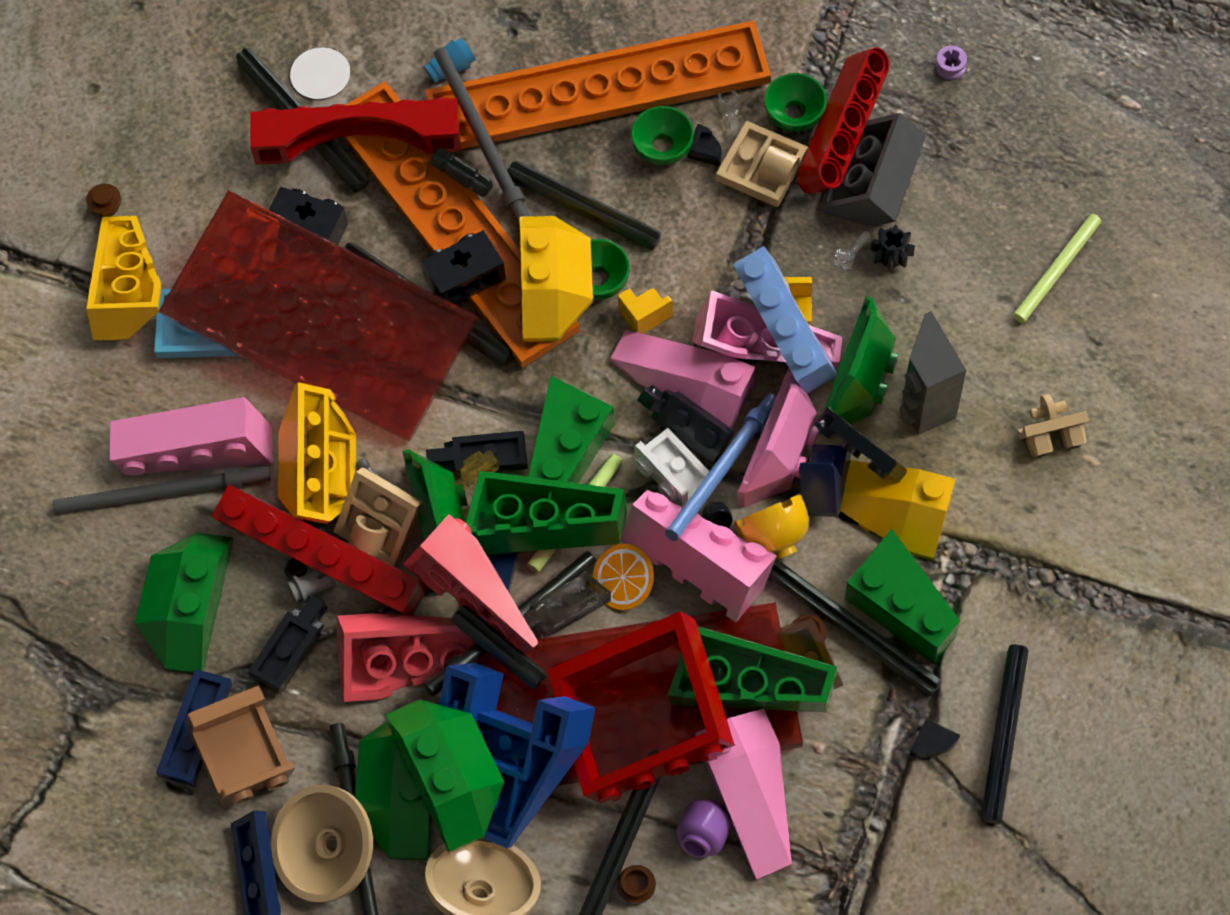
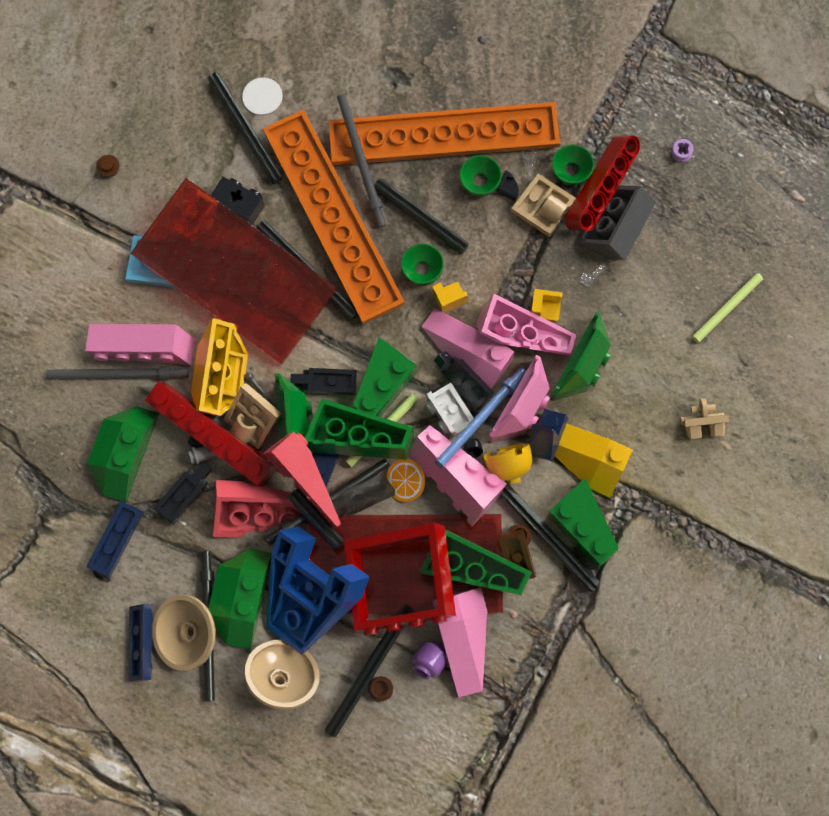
camera: 10 degrees right, 10 degrees up
(123, 281) = (112, 225): yellow wedge -> none
(239, 747) = (141, 559): medium nougat panel -> none
(287, 133) = (230, 140): red arch -> none
(449, 768) = (271, 598): green wedge -> none
(460, 55) = (354, 98): dark azure cone -> none
(461, 172) = (343, 183): pearl dark grey axle -> none
(476, 463) = (321, 391): clear yellow plate -> none
(480, 268) = (322, 258): black brick -> none
(553, 277) = (391, 266): yellow wedge -> none
(785, 320) = (534, 312): light blue arch -> none
(881, 463) = (573, 416): black hinge -> none
(892, 247) = (619, 284): black gear -> none
(932, 379) = (630, 379): dark grey slope -> none
(933, 740) = (588, 622): black tile -> none
(1004, 734) = (635, 625): black axle -> none

